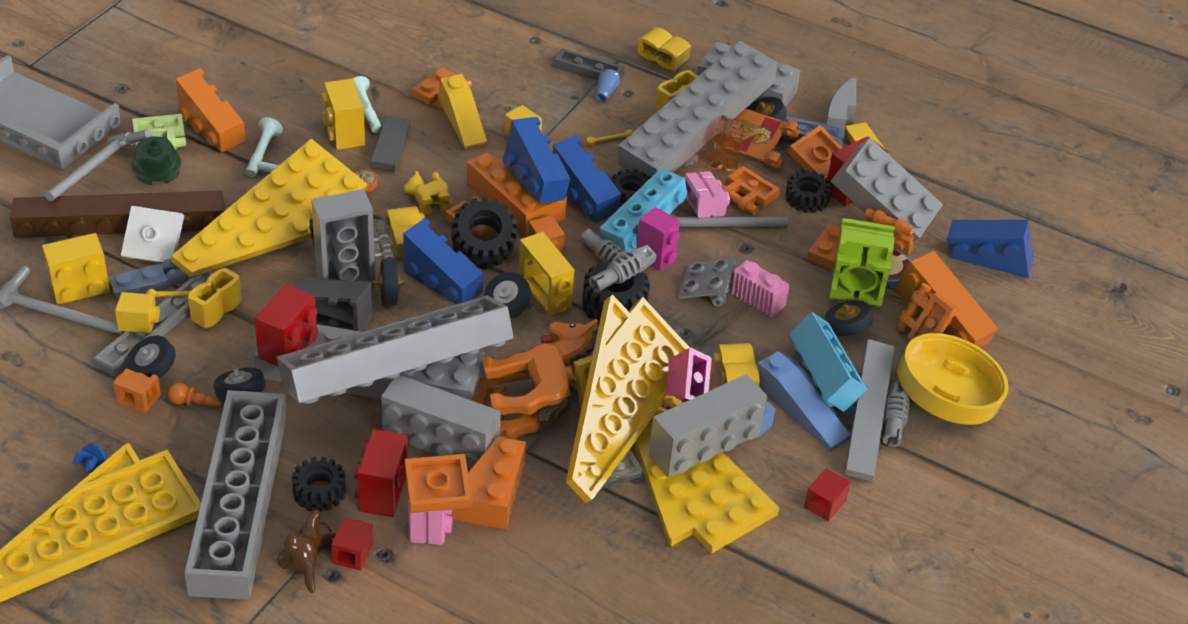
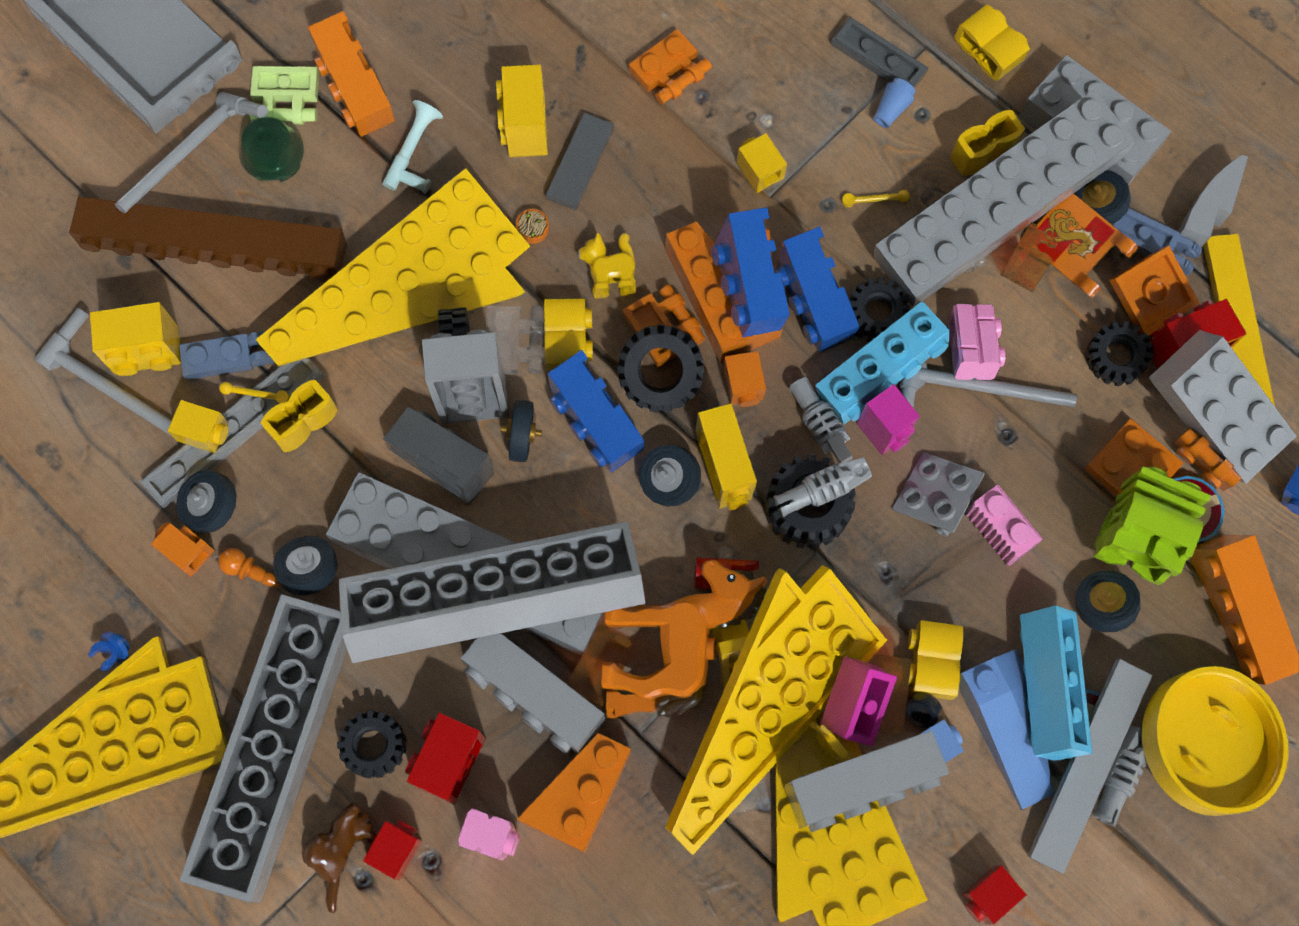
camera: 15 degrees right, 30 degrees up
(151, 234) = (241, 289): white plate -> none
(286, 324) = (362, 526): red brick -> none
(362, 85) = (562, 106): light aqua piece -> none
(438, 483) = (496, 831): orange plate -> none
(461, 111) = (683, 128): yellow slope -> none
(753, 187) = (1044, 330): orange plate -> none
(934, 317) = (1216, 641): orange plate -> none

